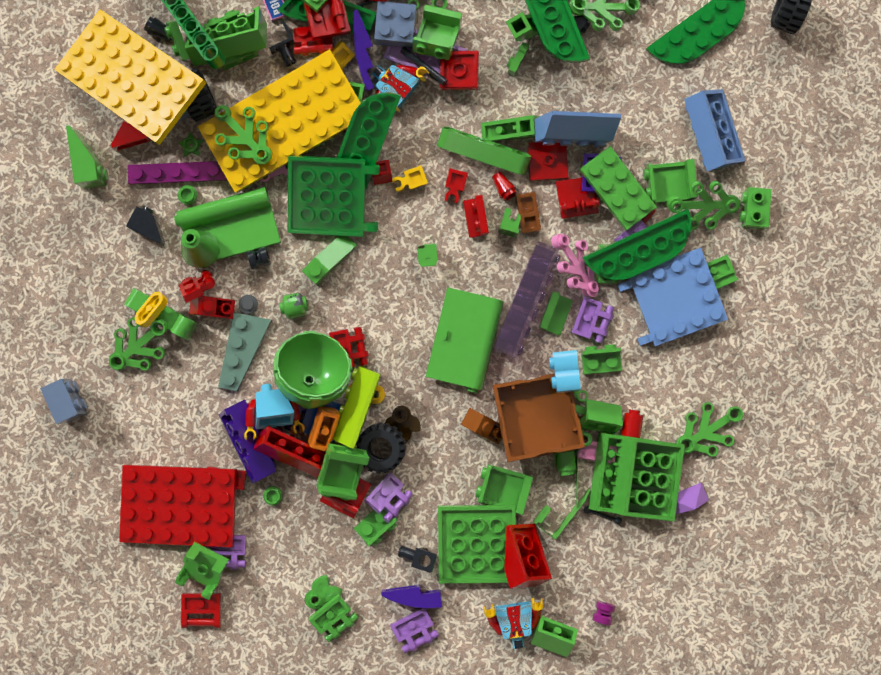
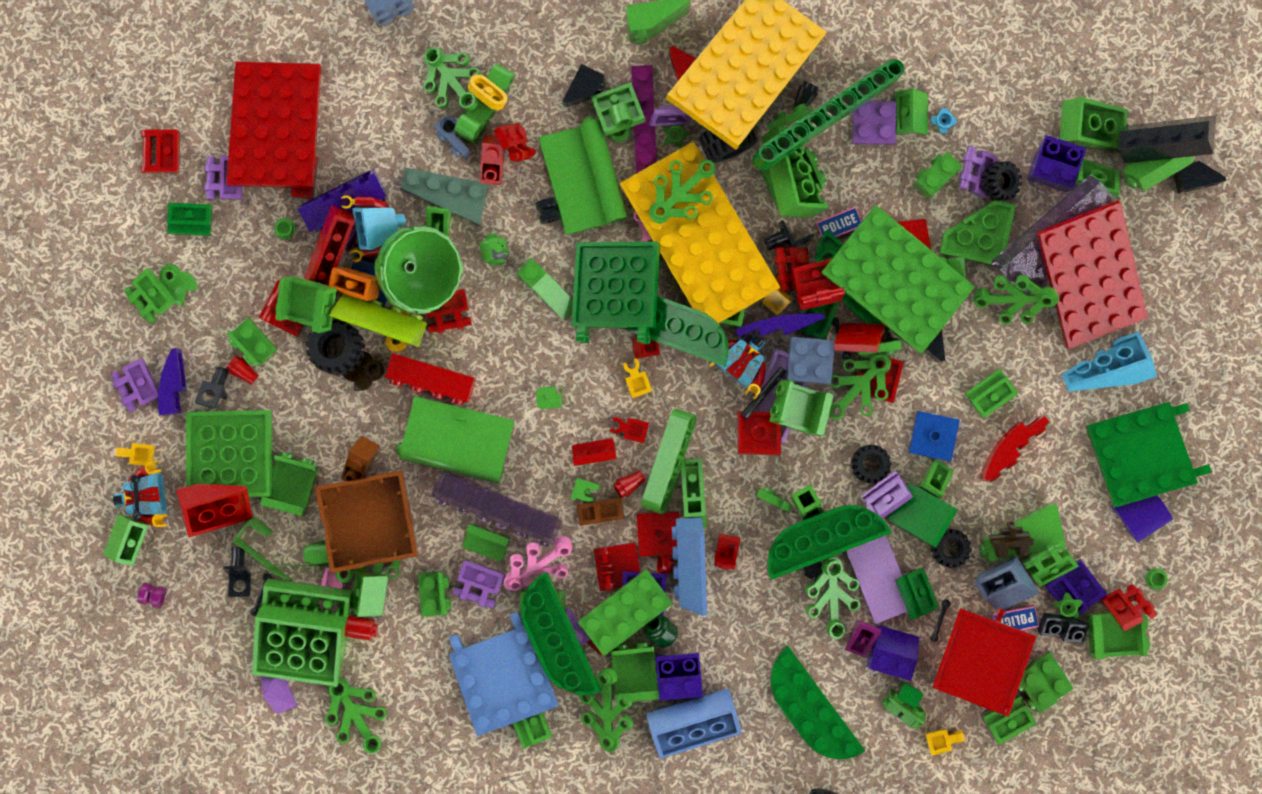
camera: 90 degrees right, 0 degrees up
(167, 193) = (618, 109): none -> bright green plate
(173, 147) = (669, 115): none -> medium lavender slope
(199, 248) = (557, 145): bright green cone -> none
(200, 338) = (458, 147): none -> sand blue plate
(204, 567) = (206, 153): bright green panel -> none
(248, 304) = (497, 199): dark grey plate -> none
(263, 582) = (189, 219): none -> green plate
(265, 355) = (439, 219): none -> bright green slope
(383, 494) = (283, 349): medium lavender plate -> none
(400, 534) = (241, 369): none -> red cone
(409, 362) = (430, 378): none -> red brick
(476, 625) = (138, 454): none -> yellow plate
(499, 627) = (135, 479): none -> black hinge
(564, 100) = (726, 551): none -> red bracket
(566, 371) = (414, 551): medium azure brick -> none
(575, 154) = (665, 565): none -> red plate
(582, 535) = (238, 572): none -> black bracket
(635, 156) = (662, 631): none -> dark green head
(674, 141) = (679, 676): none -> dark purple slope
(756, 208) = (604, 769): bright green brick -> none

